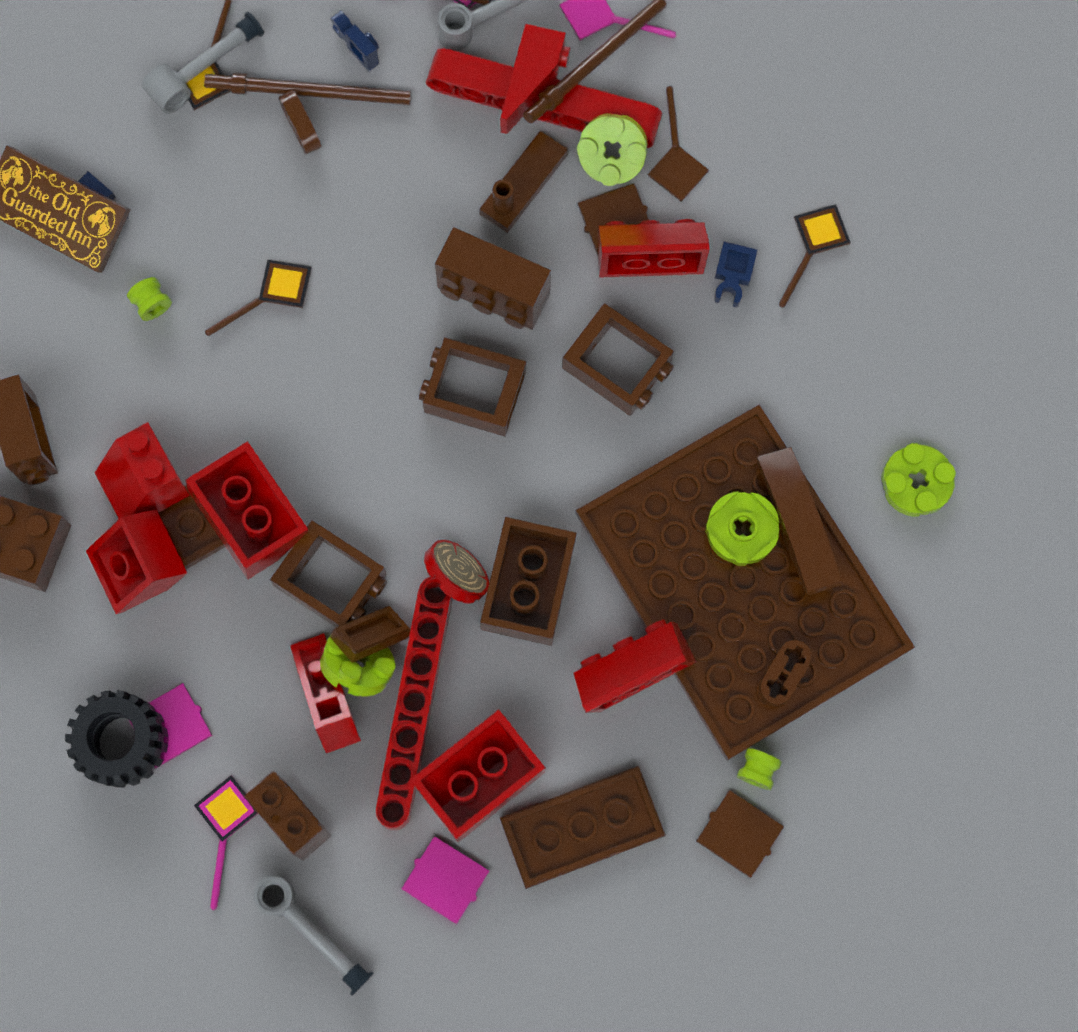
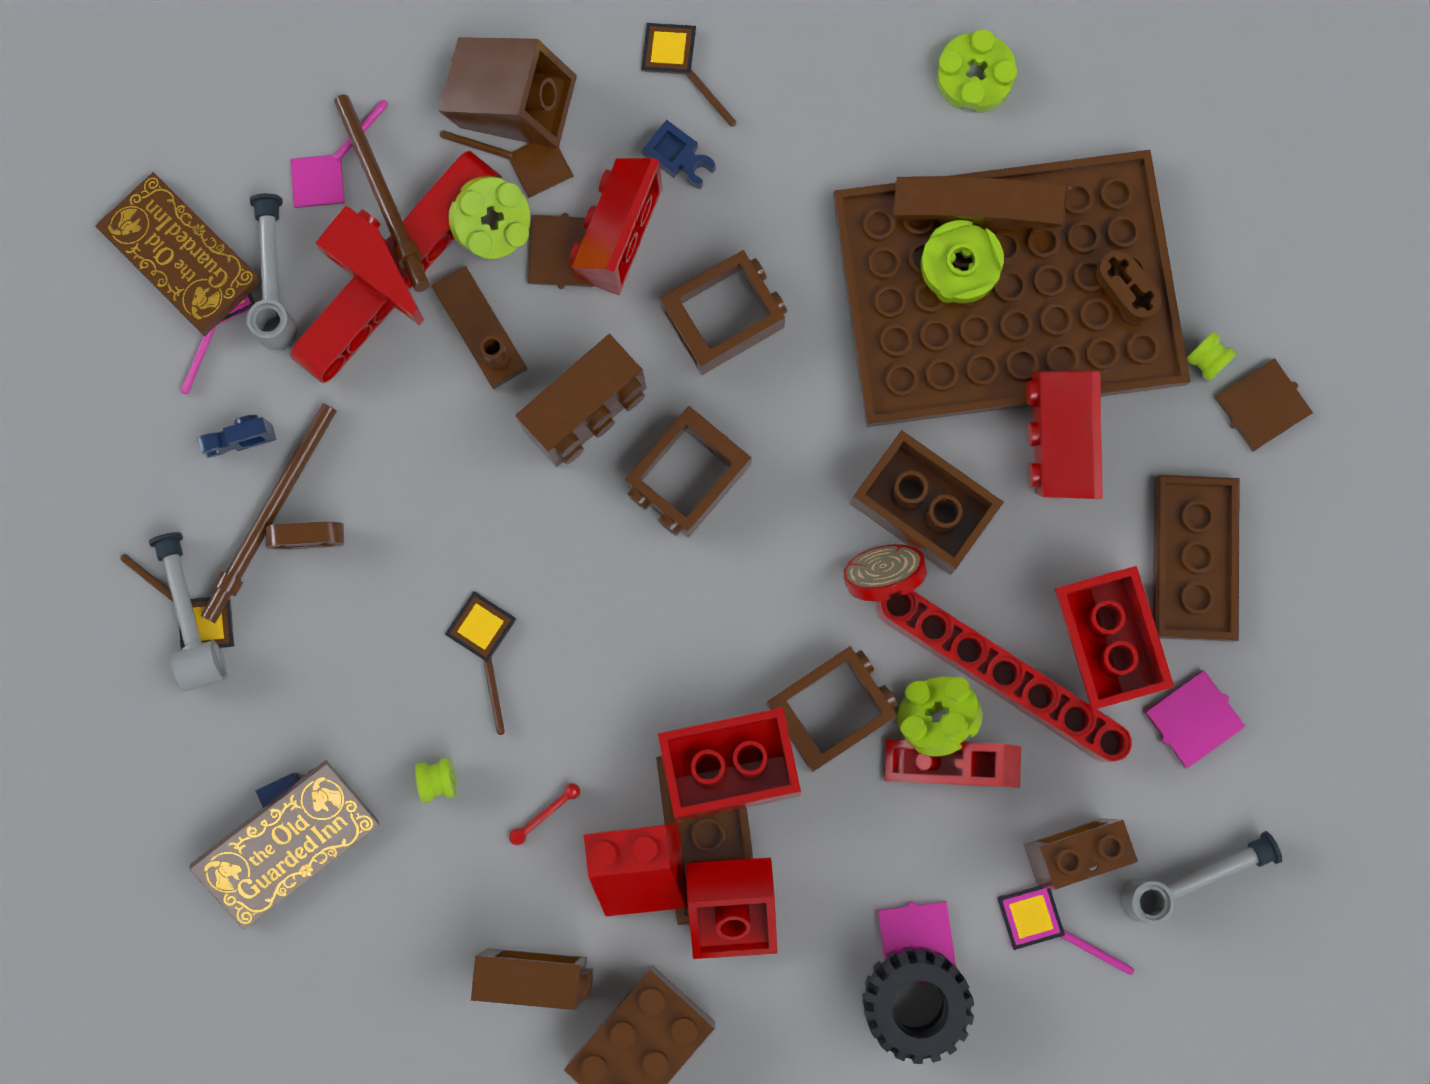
camera: 60 degrees left, 5 degrees up
(131, 381) = (518, 836): none -> red hinge
(370, 633) = (914, 689): reddish brown tile -> none
(724, 121) = (508, 89): none -> reddish brown slope

